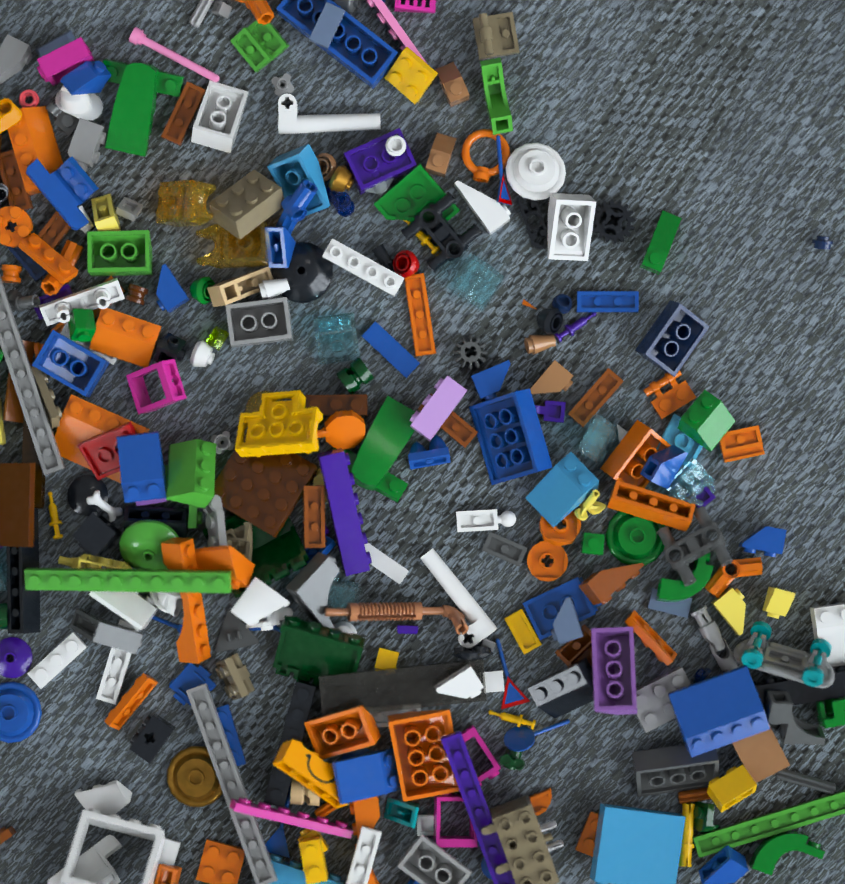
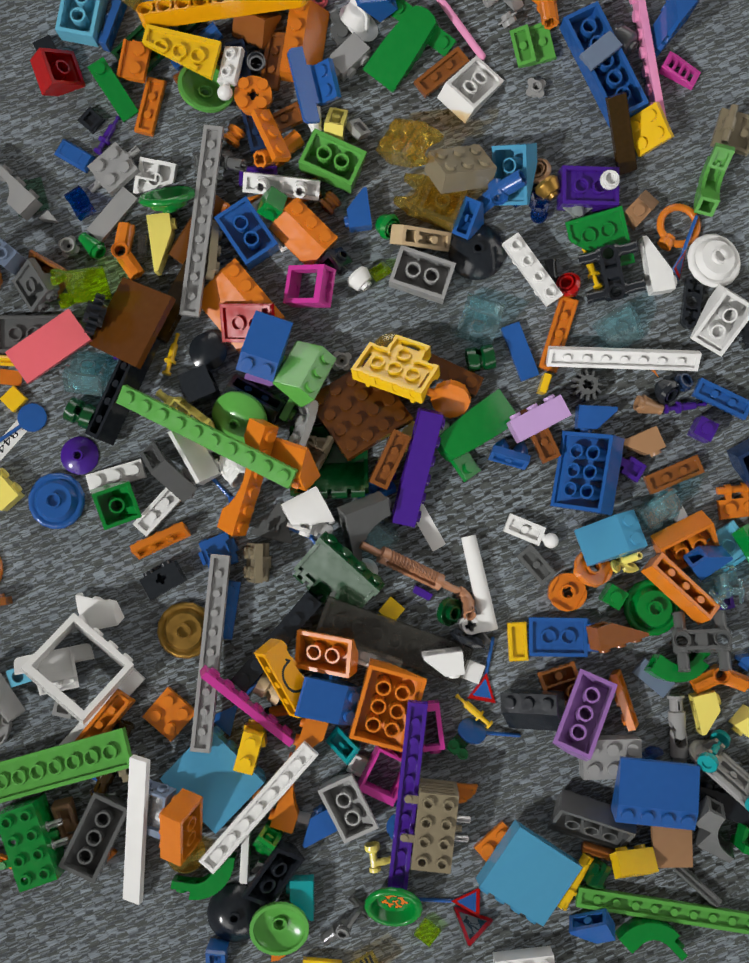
camera: 25 degrees right, 0 degrees up
(71, 687) = (115, 504): none -> green slope
(113, 512) = (213, 357): white piece -> none
(223, 31) = (508, 19): none -> light grey plate
(273, 288) = (447, 250): white cone -> none
(291, 123) = (530, 124): white axle -> none
(386, 94) = (621, 132): none -> dark brown tile
(428, 370) = (544, 383): none -> yellow tile
(442, 634) = (449, 611): none -> dark green plate
(452, 84) = (679, 156): medium nougat slope -> none
(492, 309) = (623, 358): none -> white plate
(567, 623) = (560, 654): sand blue slope -> none
(602, 341) = (703, 429): none -> dark purple brick

